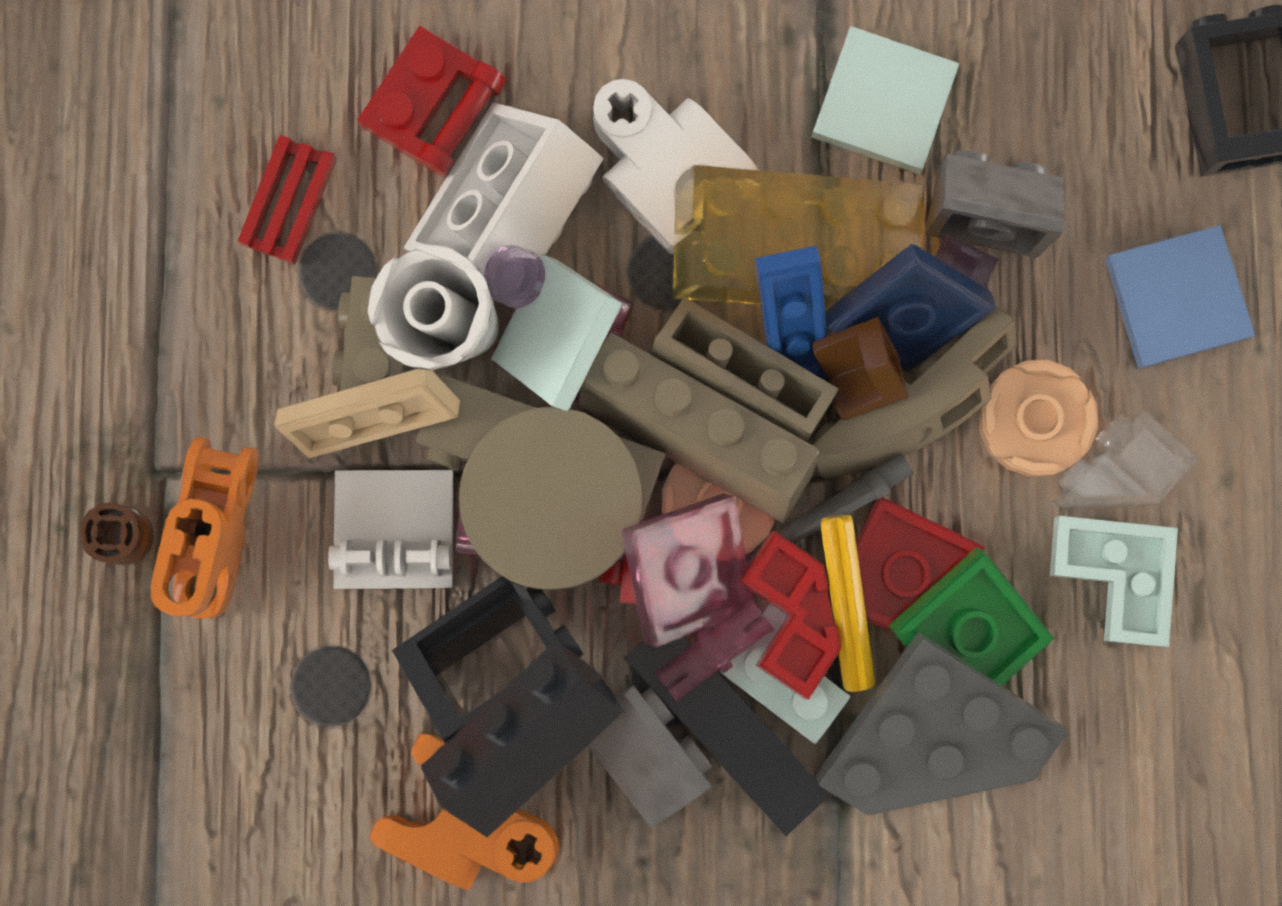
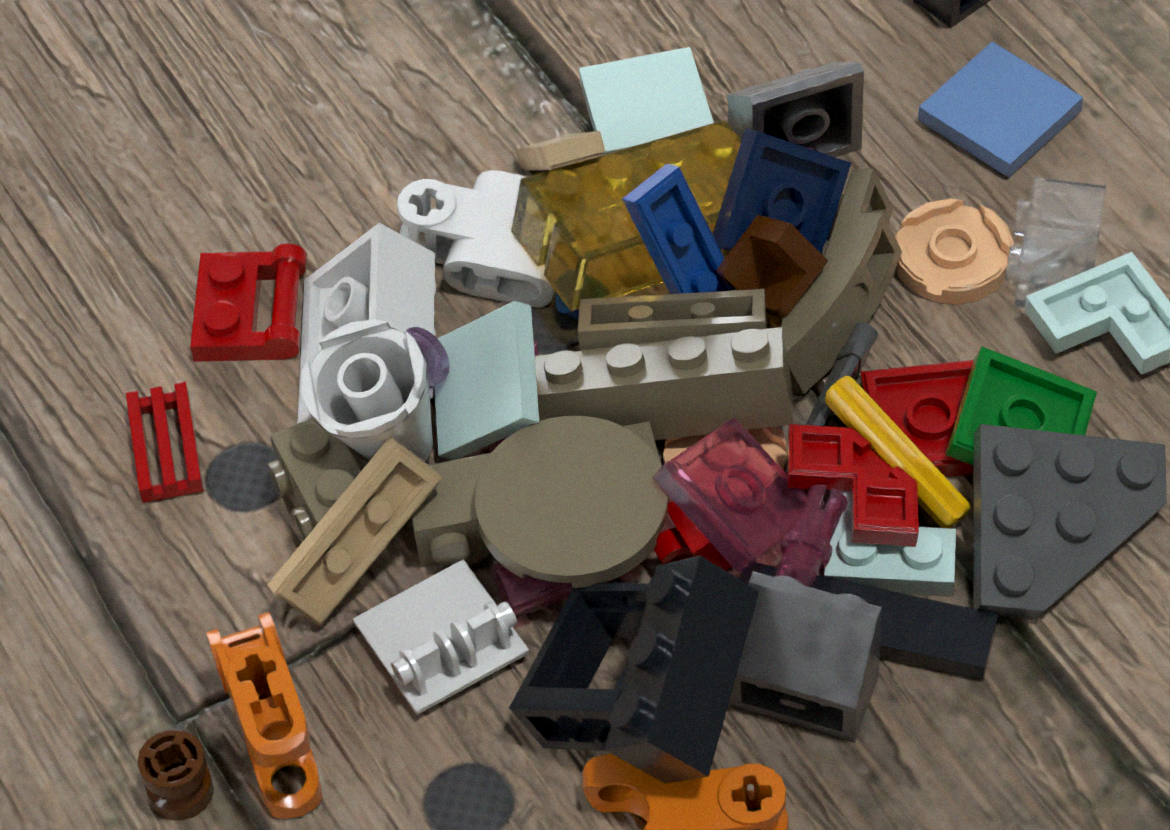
camera: 25 degrees left, 30 degrees down
(762, 132) = (561, 151): none -> tan tile

